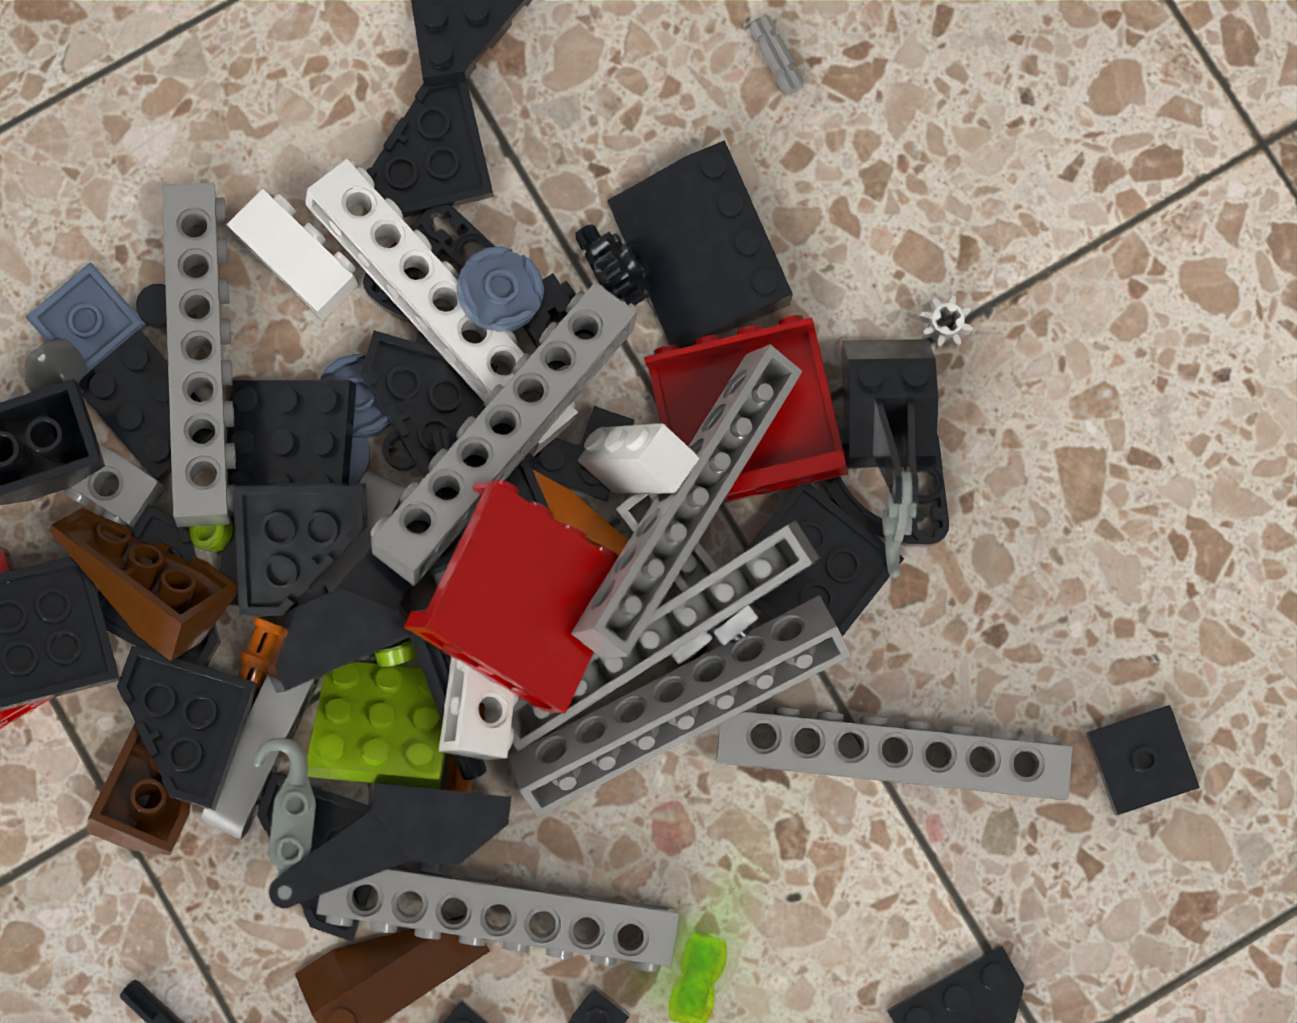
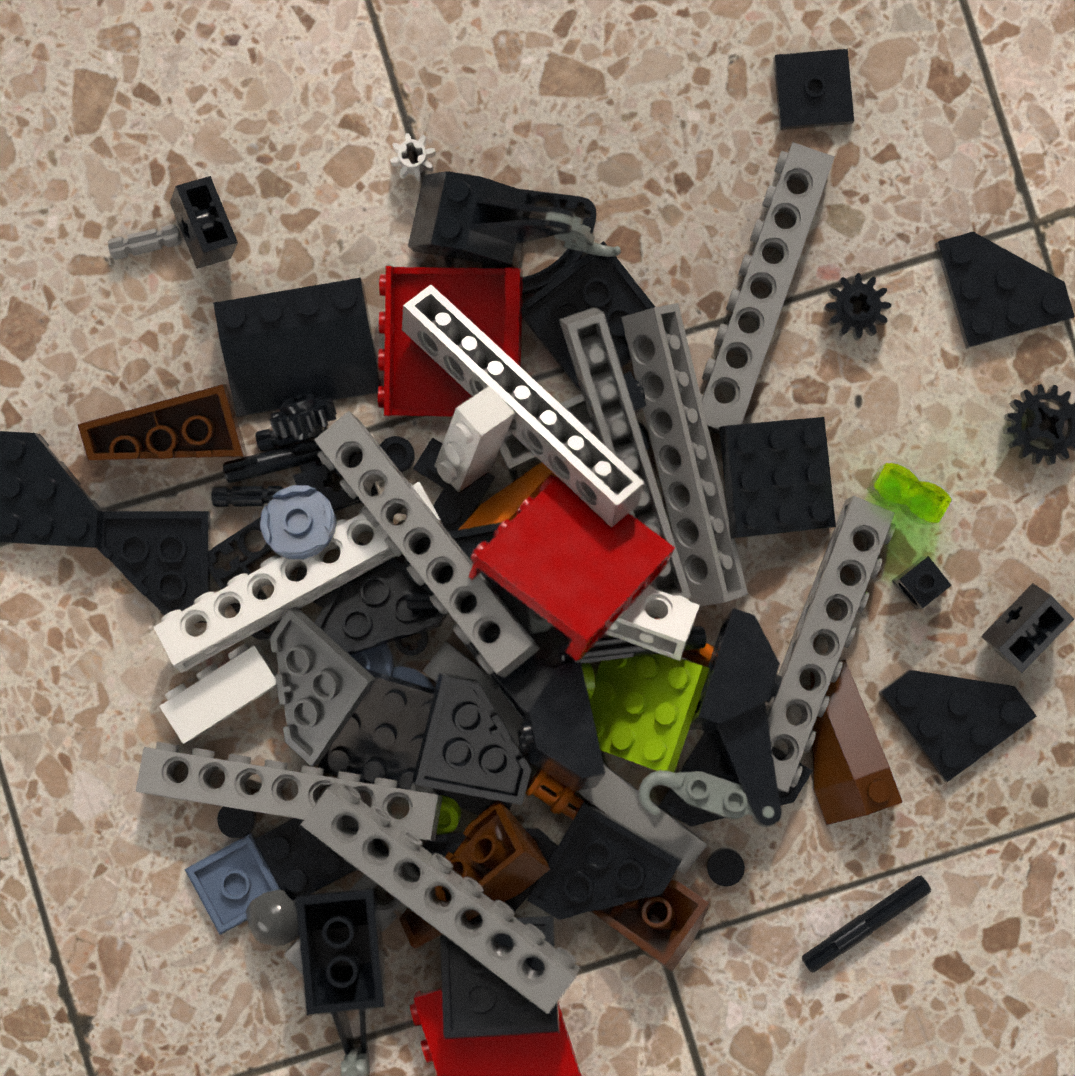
camera: 75 degrees left, 5 degrees up
(88, 554) = (448, 917): none -> light grey brick
(221, 867) = (725, 867): none -> black tile
(323, 352) = (315, 684): none -> dark grey plate
(519, 226) = (243, 495): none -> black axle
(563, 245) = (271, 461): none -> black axle
(577, 139) = (179, 427): none -> reddish brown wedge
(607, 386) = (400, 452): none -> black tile
(680, 820) = (777, 477): none -> black plate
(813, 110) = (203, 222): none -> black brick
(909, 884) = (843, 308): none -> black gear

